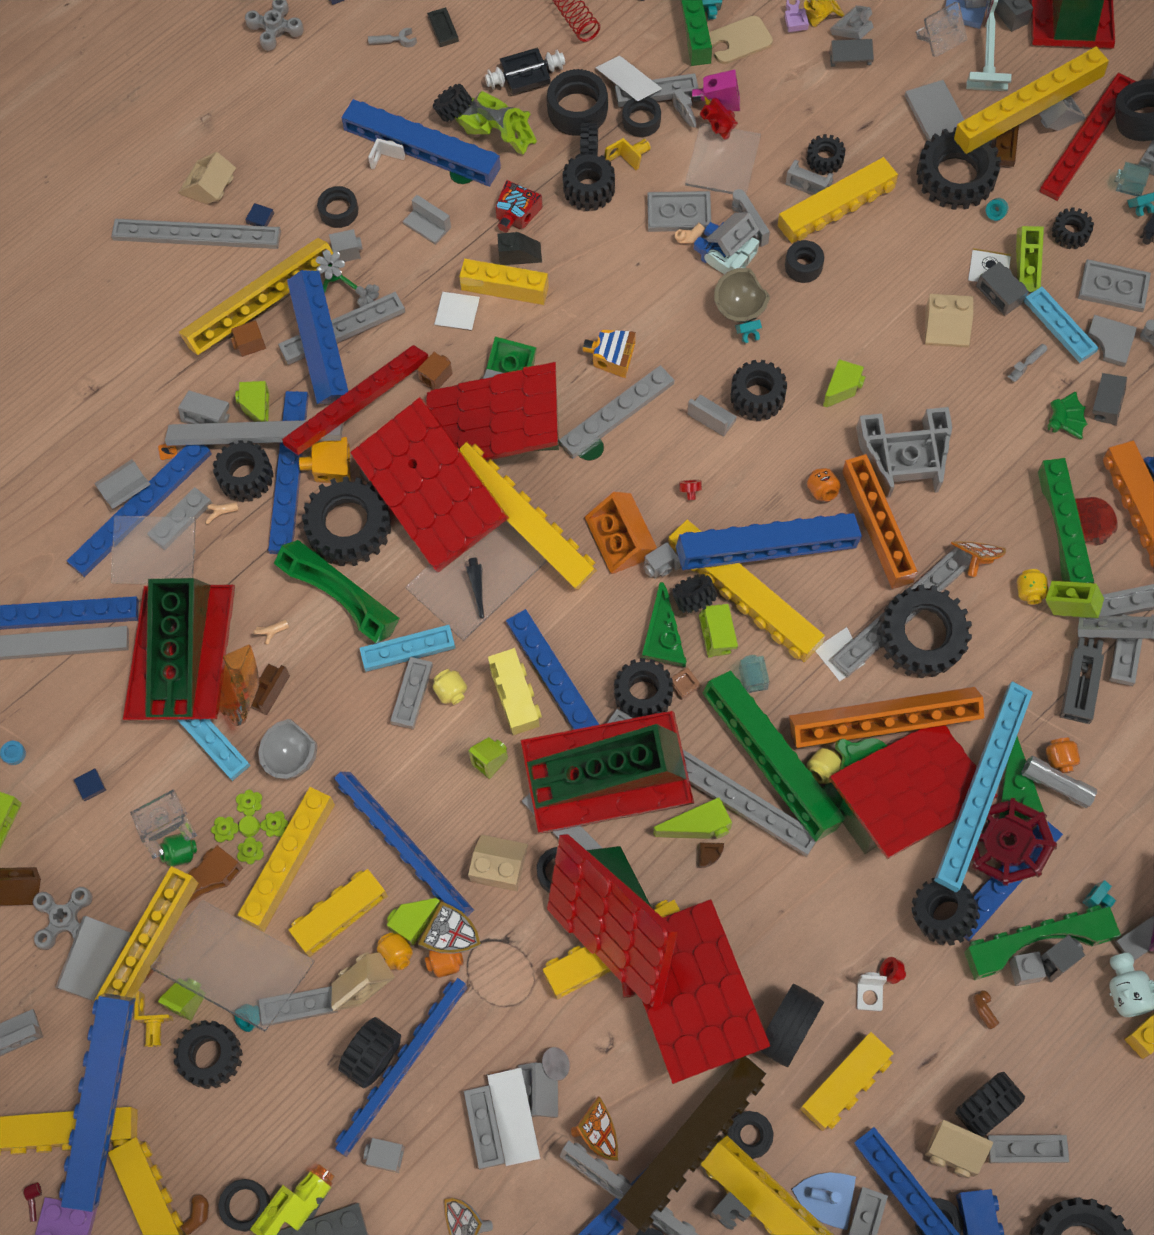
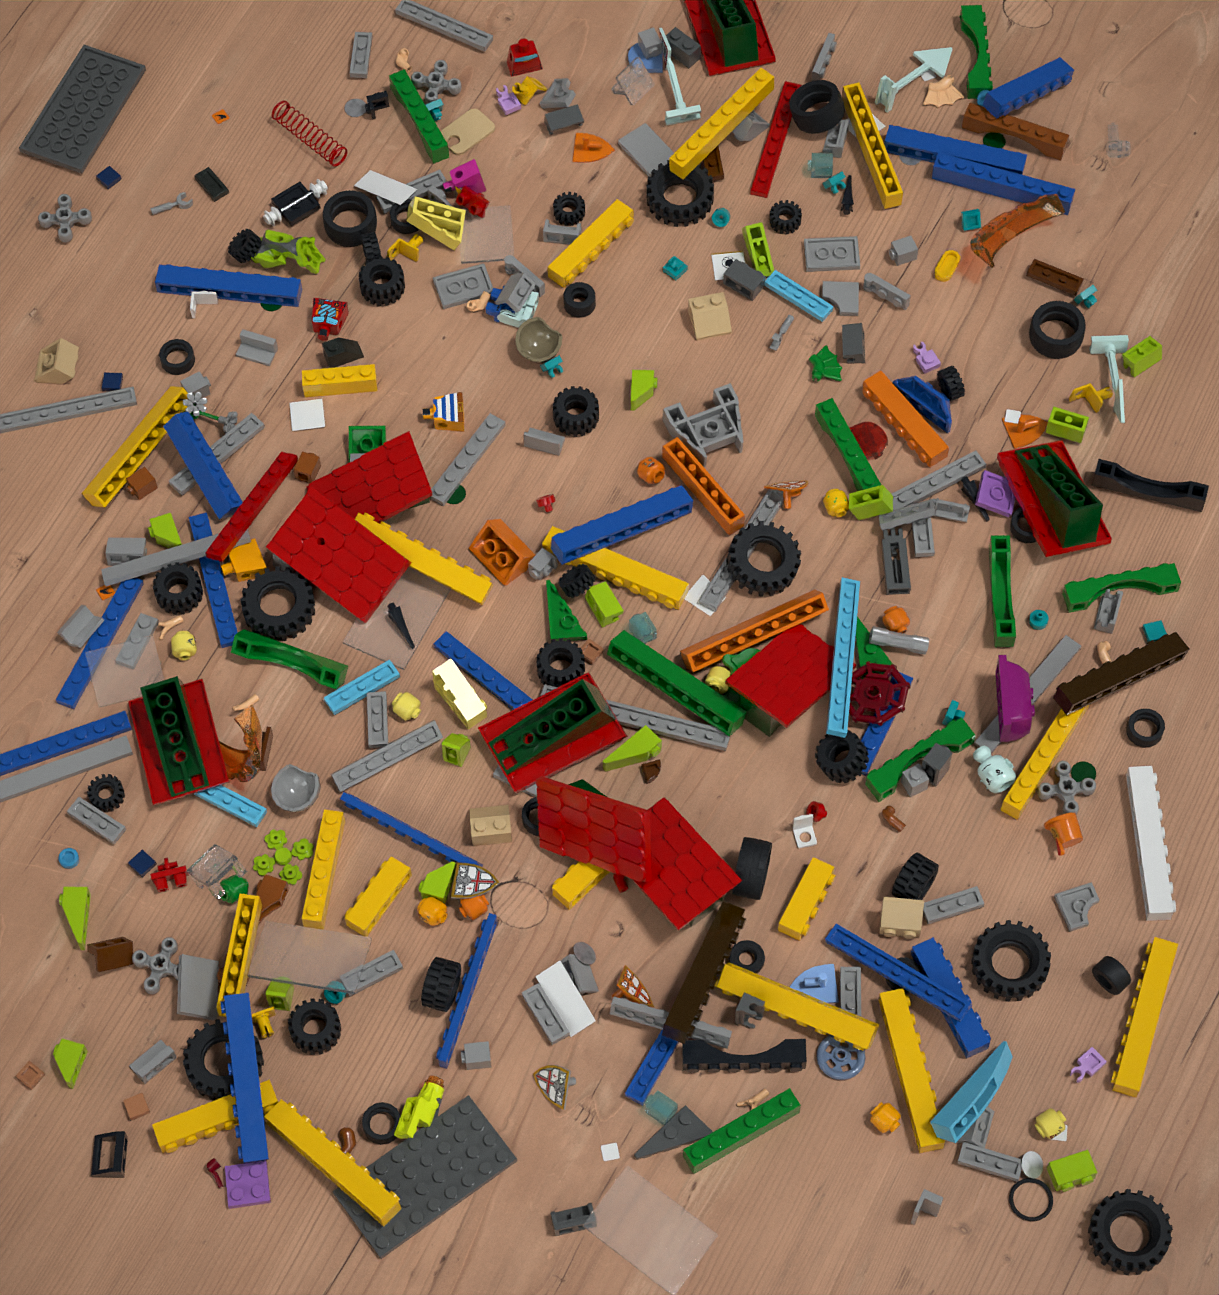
camera: 20 degrees left, 5 degrees down
(55, 1056) = (199, 1076): none -> black tyre
(57, 717) = (96, 820): none -> light grey plate
(71, 679) = (104, 782): none -> black tyre
(101, 811) = (160, 878): none -> red hips
(227, 539) = (183, 645): none -> light yellow head
(360, 981) = (415, 938): tan slope -> none
(406, 740) = (386, 755): none -> light grey plate
(672, 129) = (437, 220): none -> light yellow wedge
(871, 93) = (590, 148): none -> orange shield
(925, 254) = (675, 268): none -> teal tile

